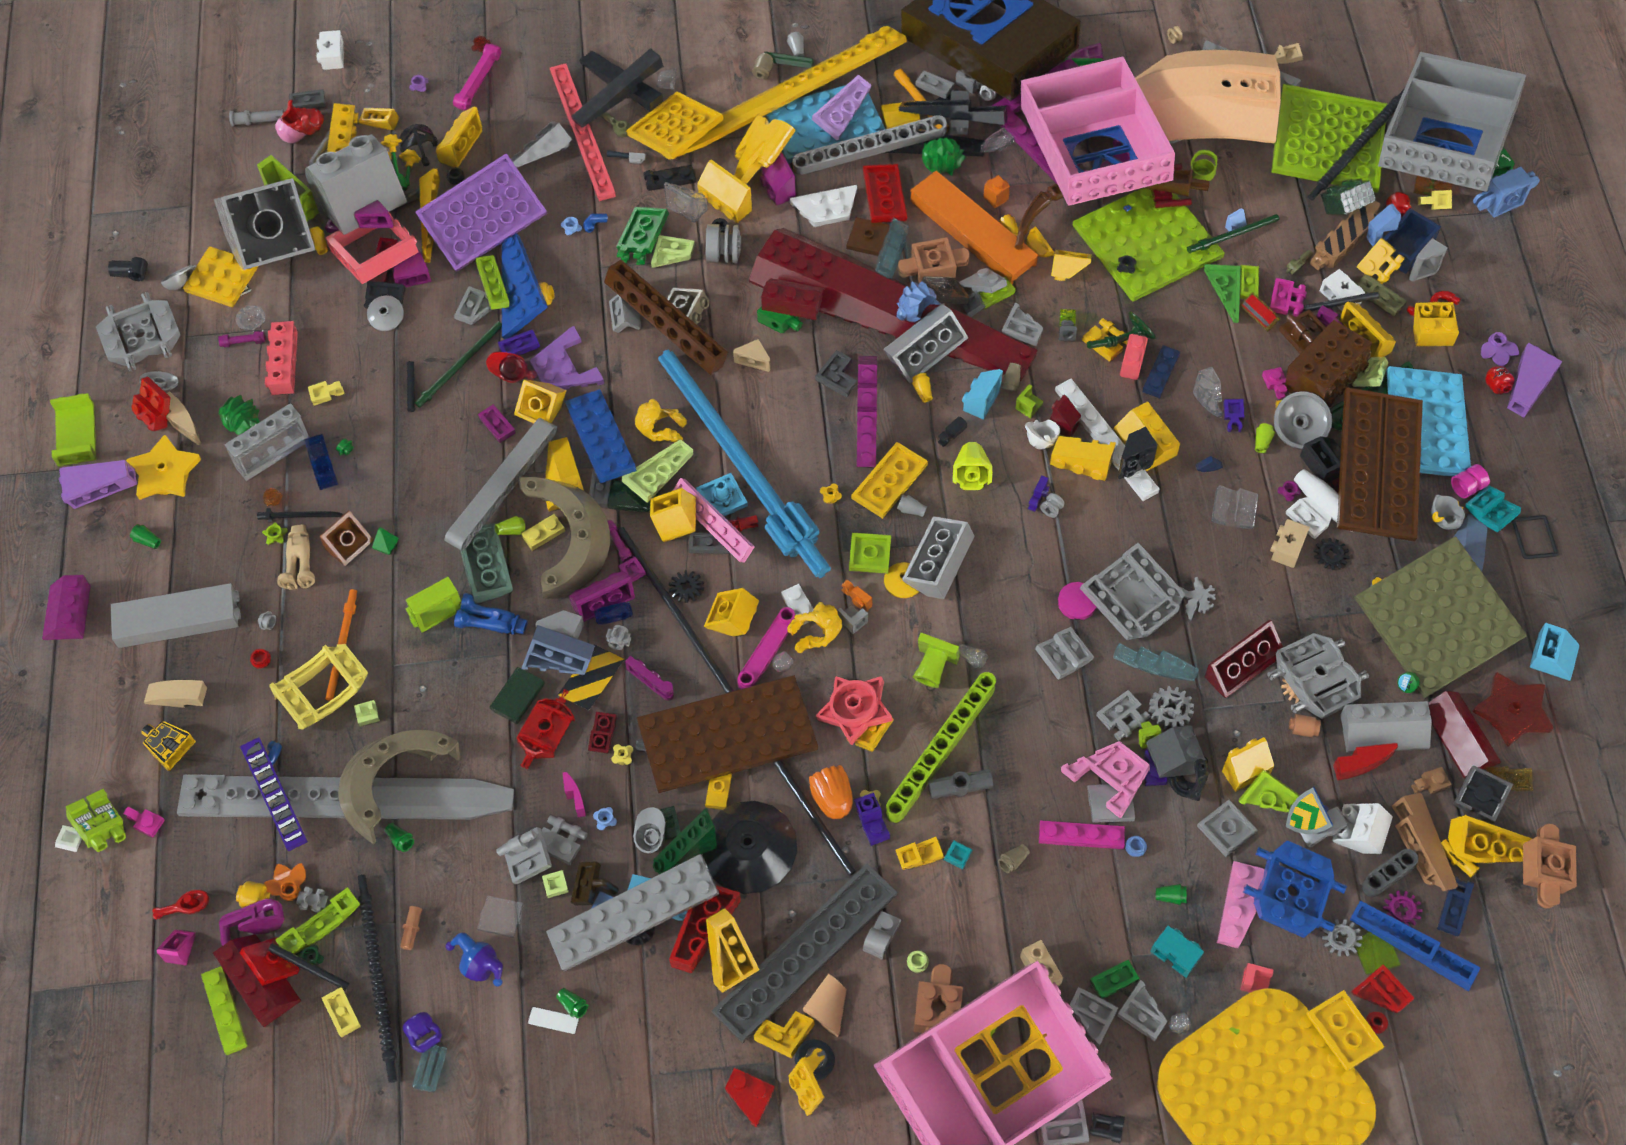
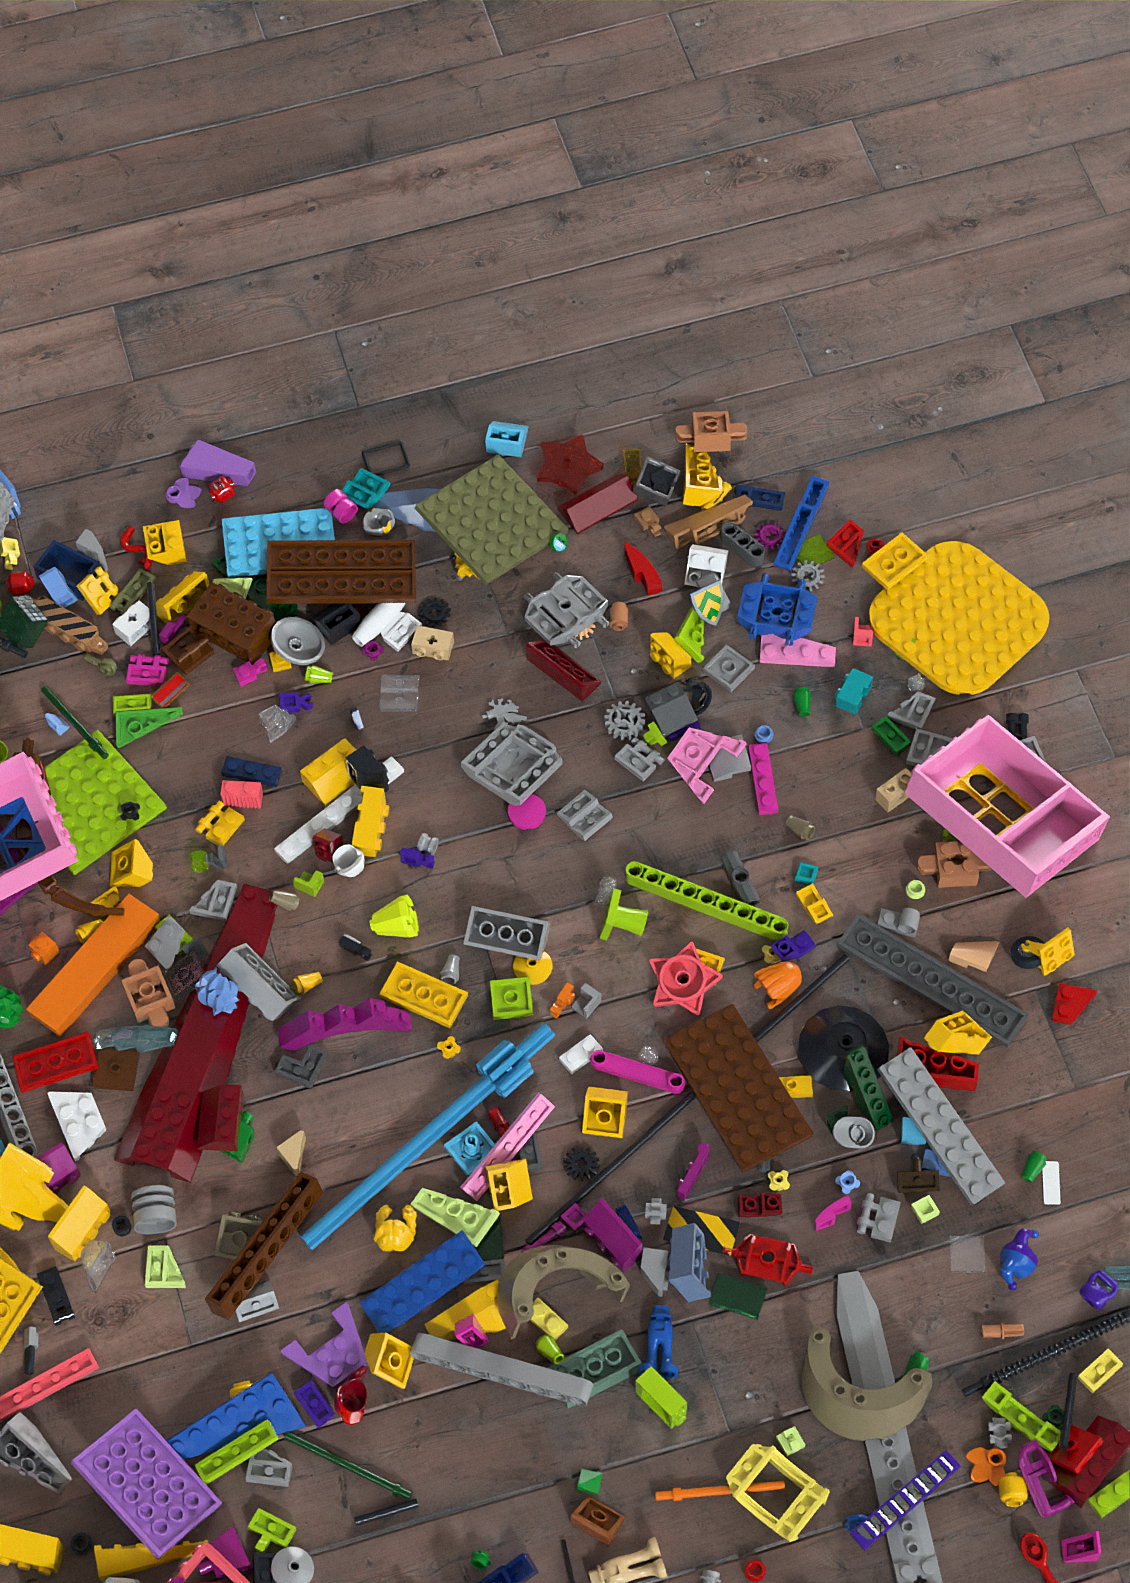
camera: 100 degrees left, 0 degrees up
(421, 302) = (270, 1529): none -> lime plate
(496, 423) = (421, 1401): magenta plate -> none
(526, 855) = (906, 1239): light grey plate -> none
(543, 461) = (470, 1332): none -> dark pink slope
(568, 222) = (139, 1383): light blue plate -> none
(589, 223) = (134, 1370): blue arm -> none
(641, 233) = (142, 1305): green tile -> none
(785, 1039) = (1015, 977): yellow plate -> none
(825, 617) = (600, 1019): yellow hair -> none
(983, 393) = (309, 921): medium azure slope -> none
(1138, 328) = (228, 811): dark green dish -> none
(1163, 665) = (580, 735): clear light blue slope -> none
(1387, 723) = (605, 556): light grey slope -> none

